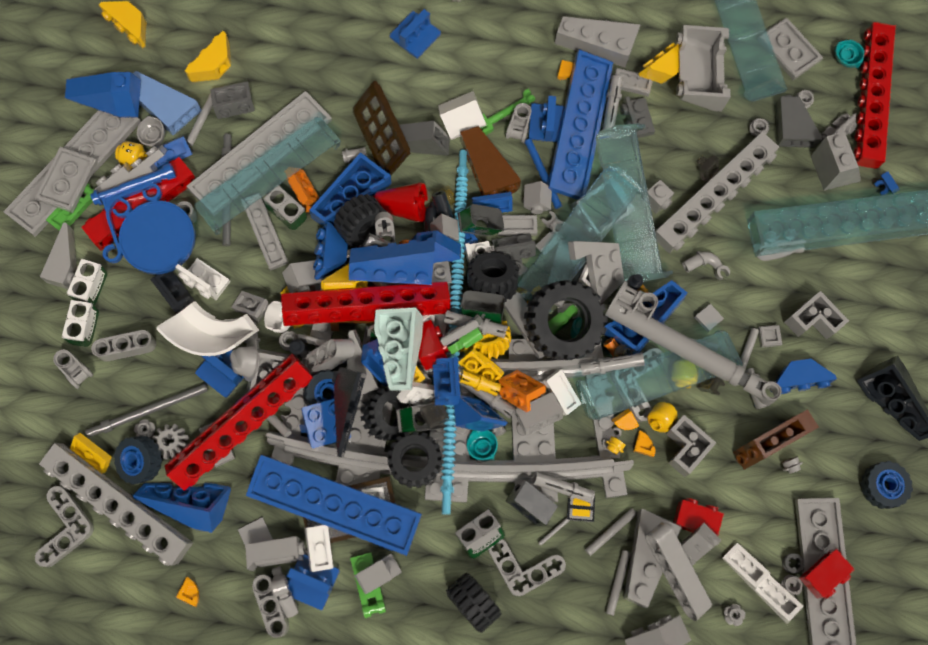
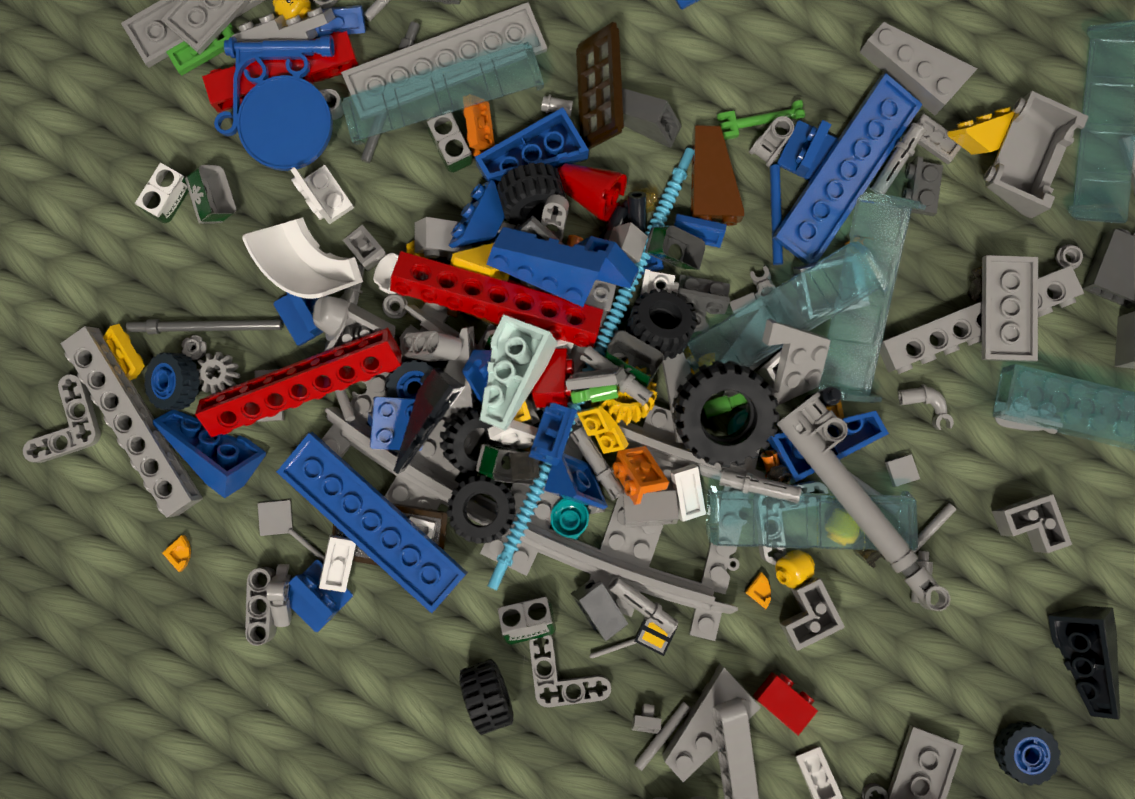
camera: 25 degrees right, 10 degrees up
(62, 259) = (168, 109): light grey slope -> none
(74, 370) = (139, 247): light grey piece -> none
(93, 288) = (191, 158): white piece -> none
(114, 345) = (193, 233): light grey beam -> none
(117, 310) = (218, 190): none -> light grey piece
(172, 291) = (282, 195): black hinge -> none
(266, 235) = (416, 167): light grey tile -> none
(274, 552) = (286, 548): light grey window -> none
(298, 348) = (399, 322): black cylinder -> none
(360, 563) = (379, 623): bright green plate -> none
(378, 574) = (393, 619): light grey slope -> none
(461, 114) = (706, 102): white slope -> none
(479, 382) = (592, 447): yellow pin -> none
(519, 225) = (721, 268): light grey tile -> none
(537, 197) = (756, 244): light grey brick -> none
(565, 70) = (858, 92): light orange tile -> none
(601, 575) = (646, 722): none -> light grey tile
(610, 532) = (678, 675): light grey bar -> none
(615, 445) = (723, 581): yellow plate -> none
(625, 420) = (749, 556): light orange tile -> none
(660, 197) = (906, 299): light grey brick -> none
(699, 543) = (773, 733): light grey hinge -> none
(733, 175) = (1010, 308): none -> light grey plate
(769, 336) = (966, 521): light grey tile -> none
(775, 439) = (918, 648): reddish brown slope -> none
(792, 465) = (925, 684): light grey plate -> none
(803, 375) = (984, 585): blue slope -> none

